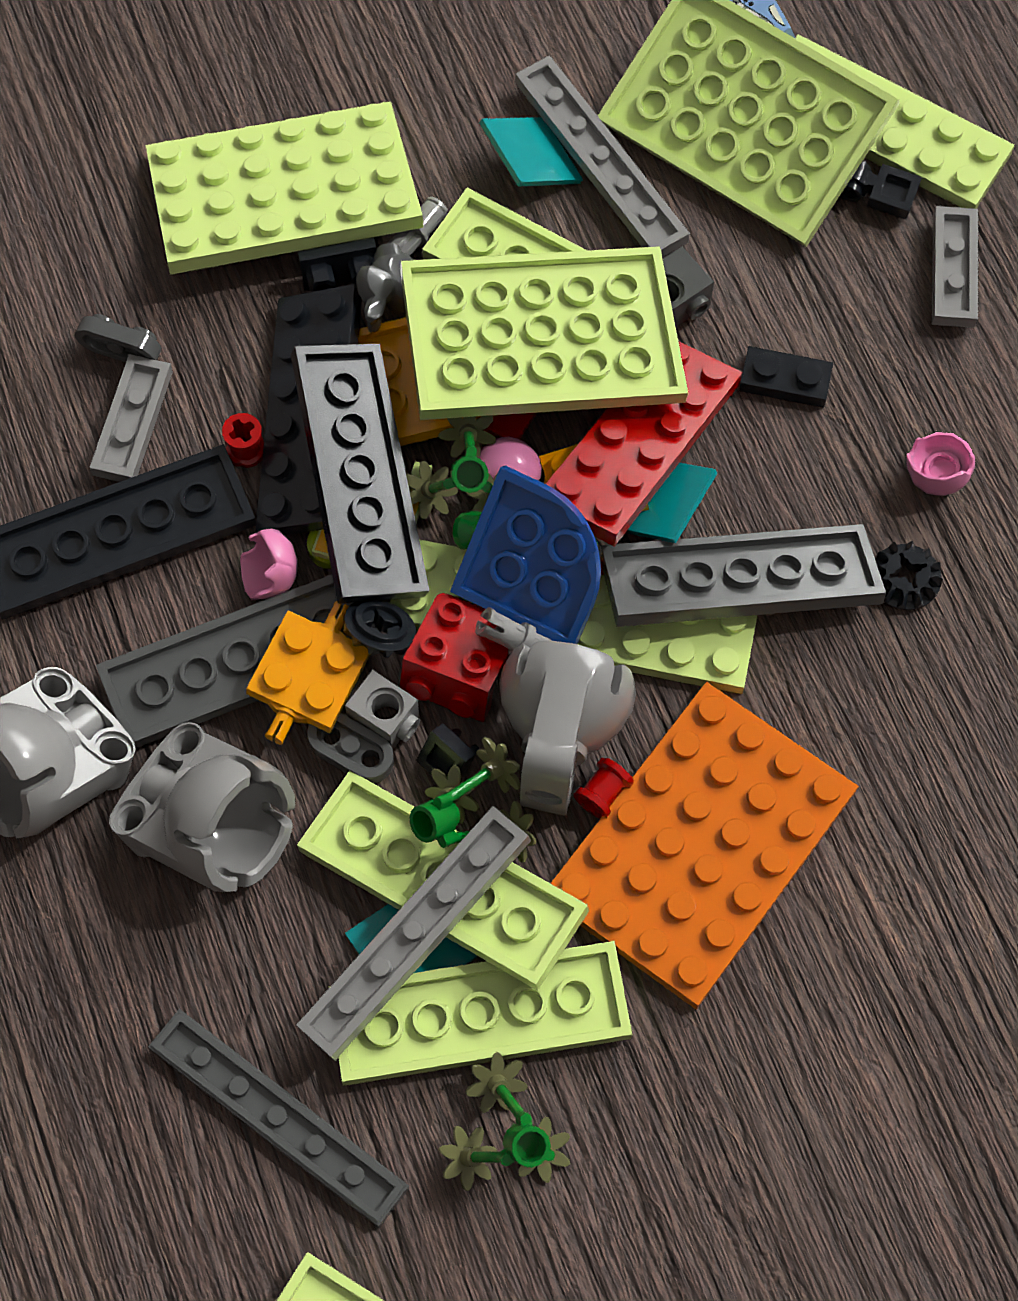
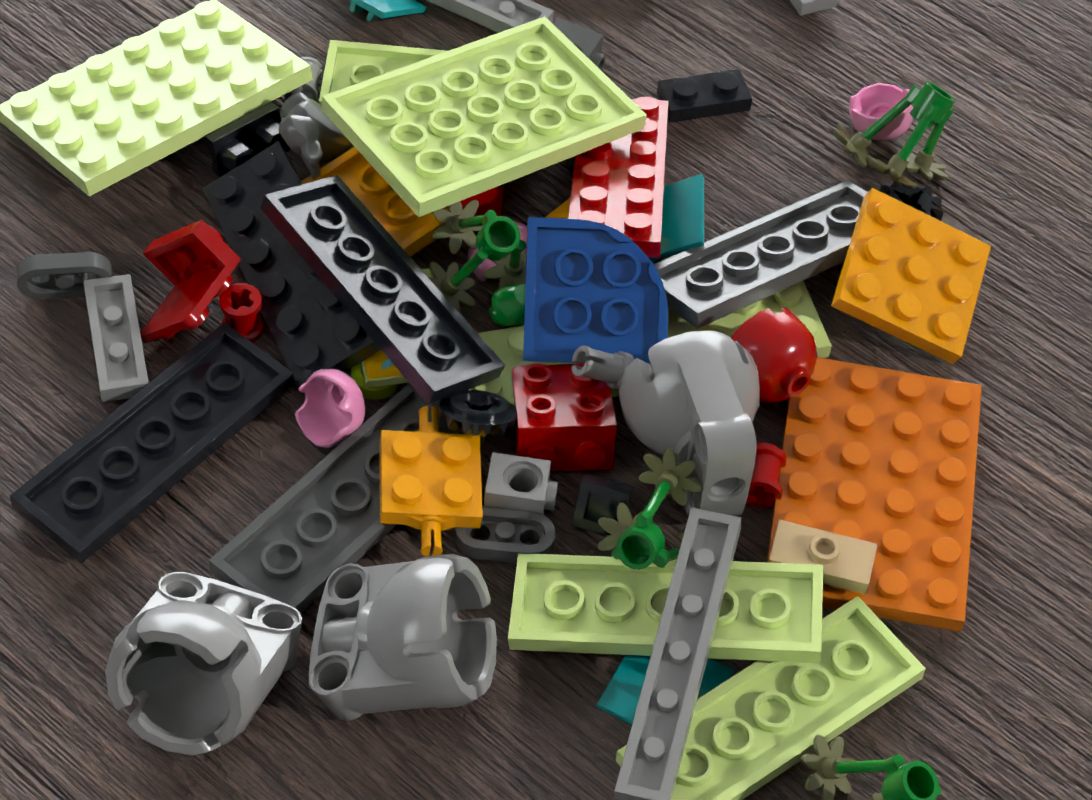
camera: 30 degrees left, 15 degrees down
(221, 399) = (199, 269): none -> red bracket
(608, 895) = (844, 559): none -> tan plate
(671, 682) = (781, 351): none -> red cylinder
(854, 652) = (911, 276): none -> light orange plate
(965, 490) = (930, 108): none -> plant

